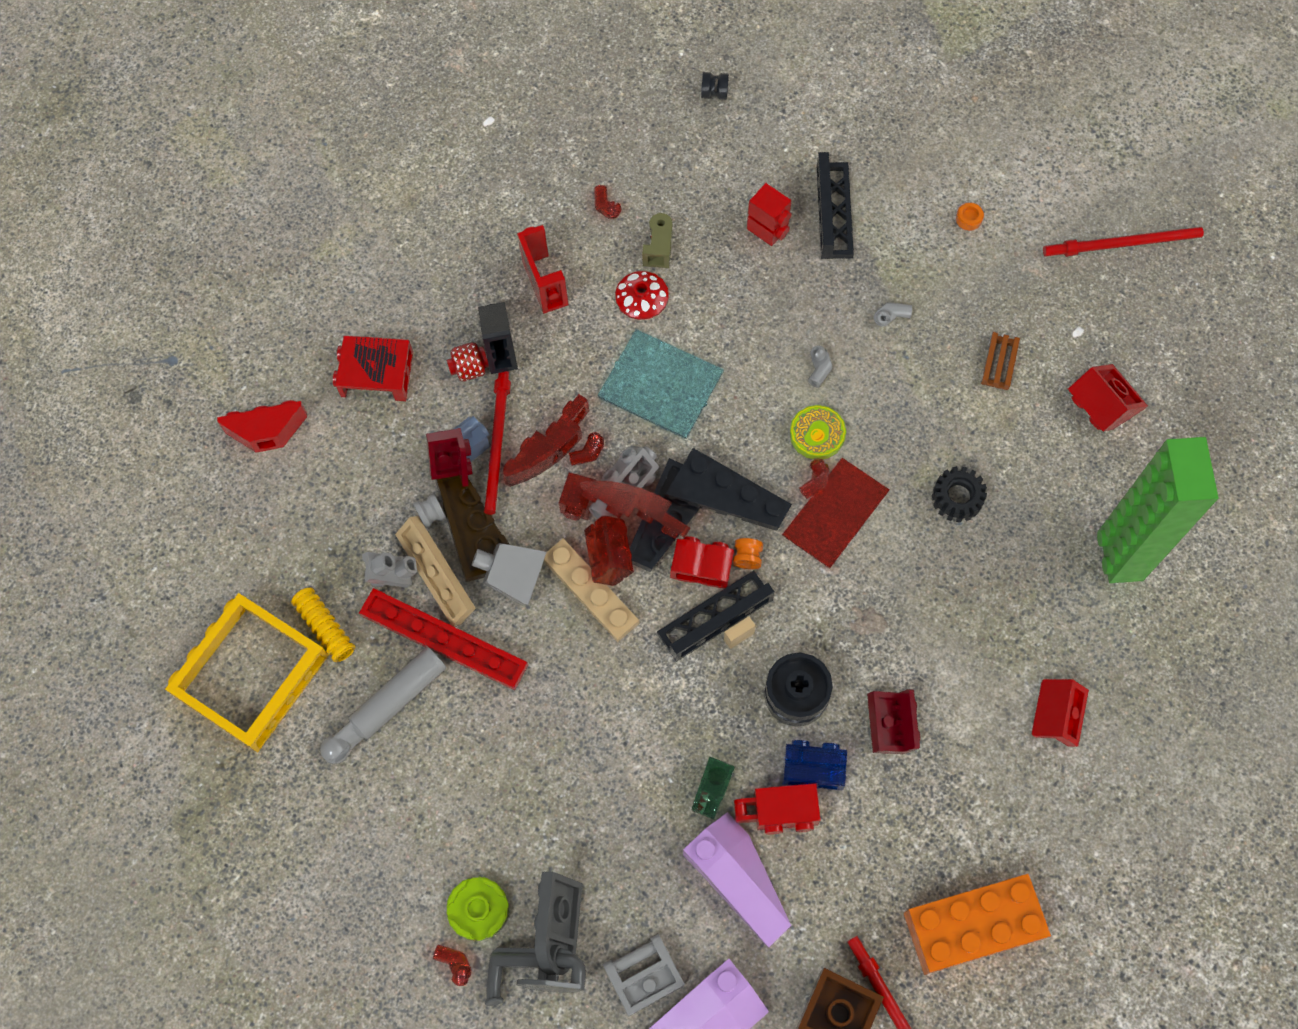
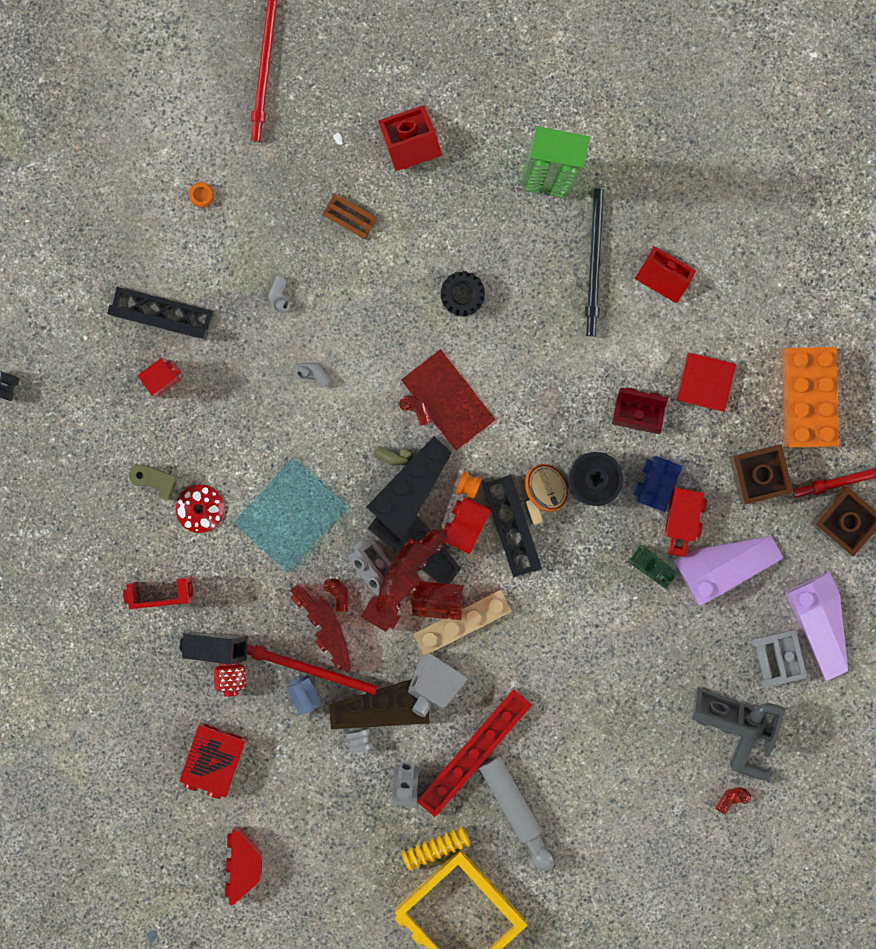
camera: 80 degrees left, 20 degrees up
(435, 571) = (414, 747): tan plate -> none
(449, 455) = (322, 714): dark red bracket -> none
(486, 910) = (695, 772): lime tile -> none
(604, 206) = (100, 520): clear red arm -> none
(753, 467) = (393, 458): none -> olive arm
(770, 637) = (546, 487): none -> piece
(817, 432) = (373, 394): tile -> none
(863, 885) = (761, 474): none -> reddish brown brick
(951, 794) = (706, 382): none -> red tile
(989, 639) = (592, 310): none -> black bar

